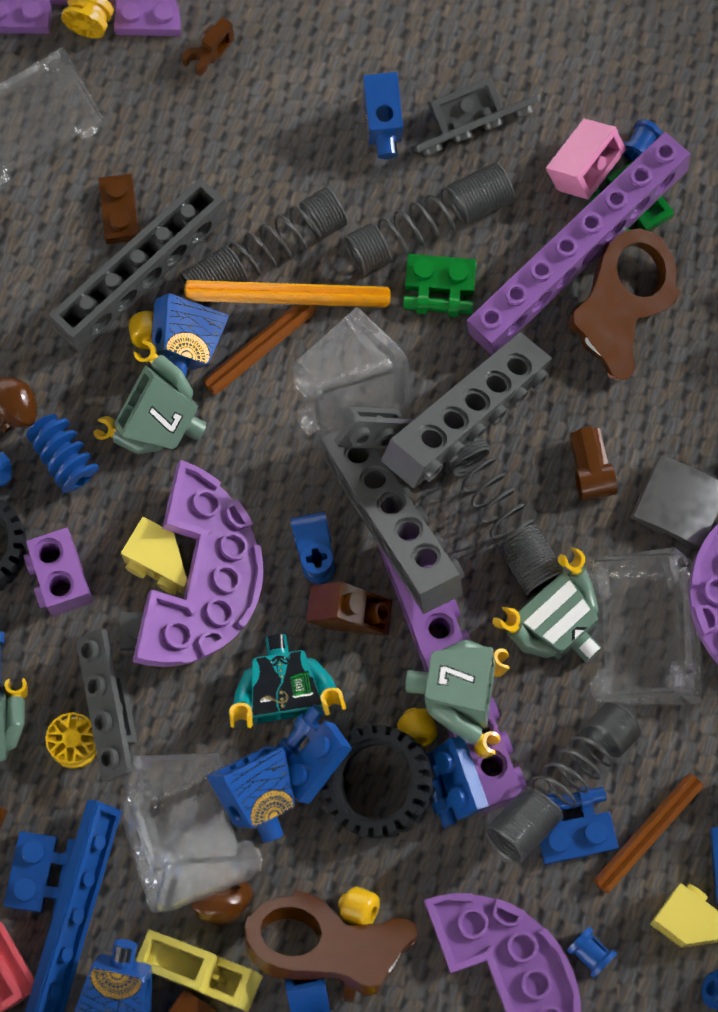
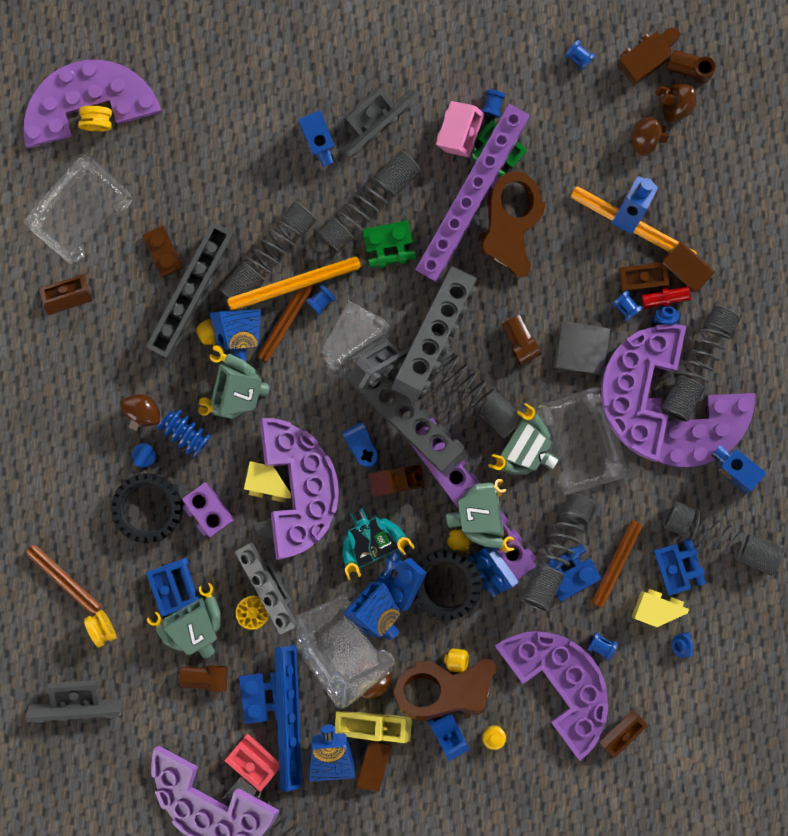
camera: 20 degrees left, 15 degrees up
(214, 43) = (187, 113): reddish brown plate -> none
(316, 329) = (320, 299): none -> blue bush

